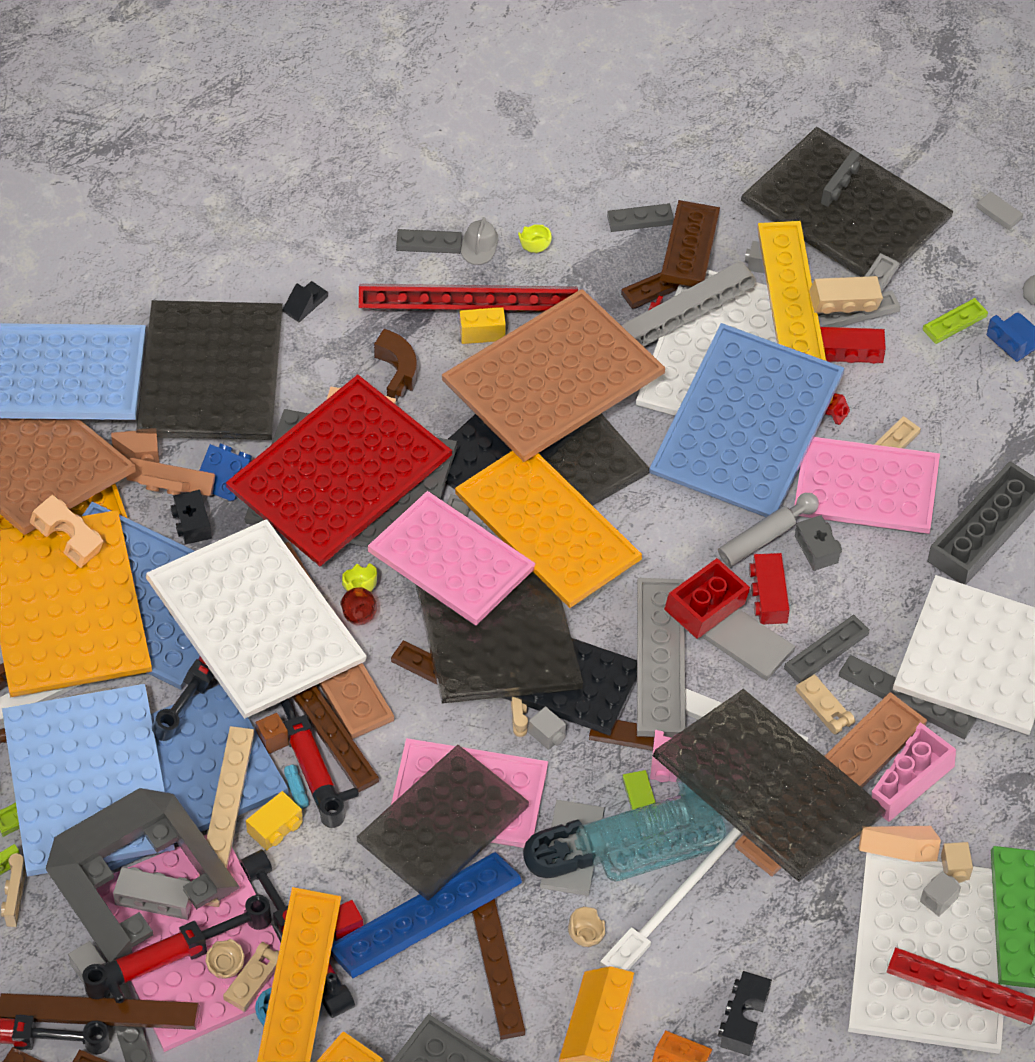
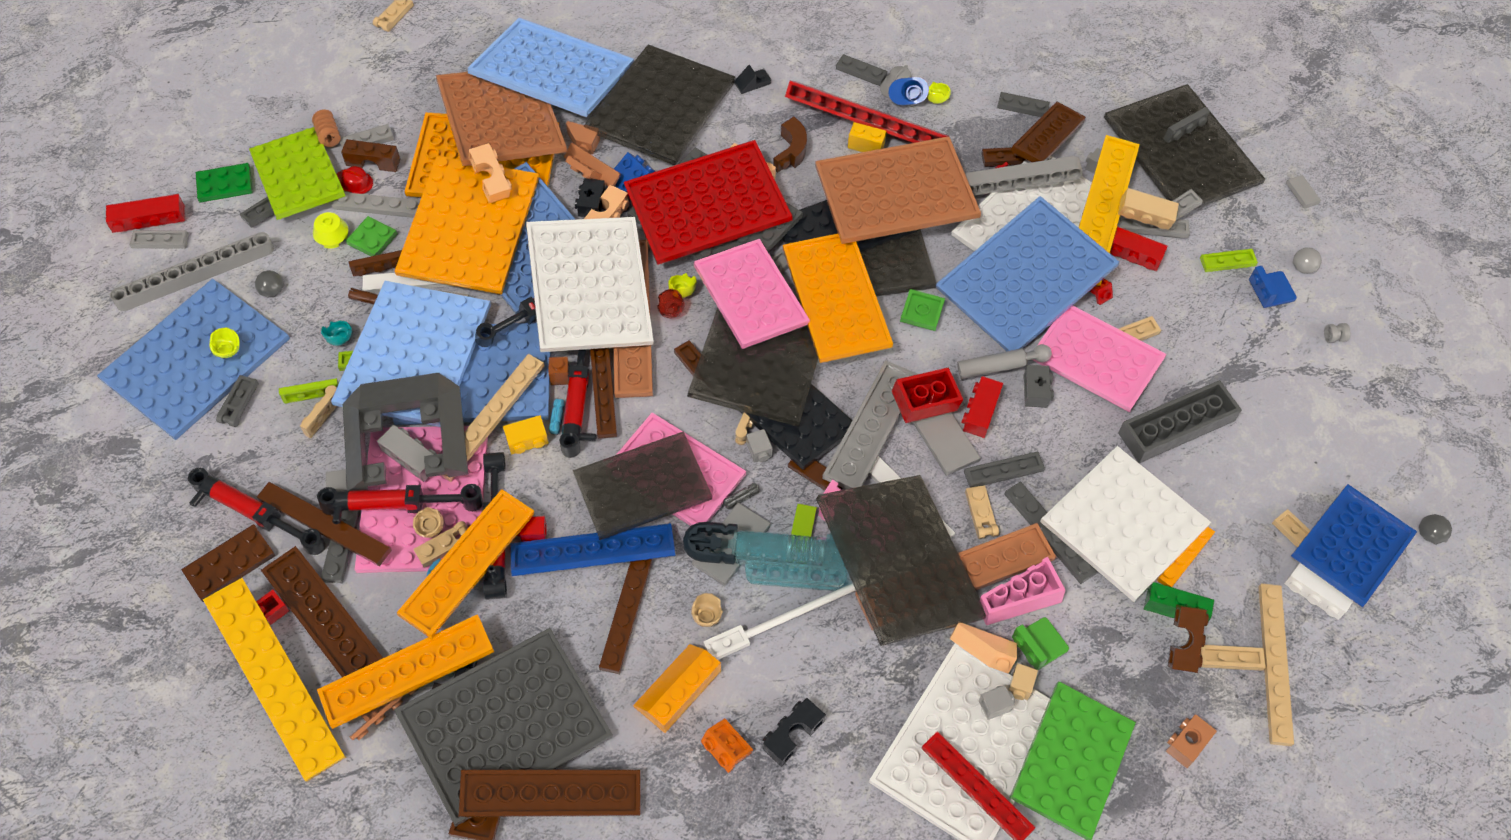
camera: 25 degrees right, 5 degrees up
(221, 511) = (614, 202): none -> light nougat arch
(502, 248) = (908, 91): none -> blue piece
(555, 791) = (741, 495): none -> dark grey axle
(648, 504) = (922, 310): none -> bright green plate
(953, 816) = (1040, 643): none -> bright green bracket

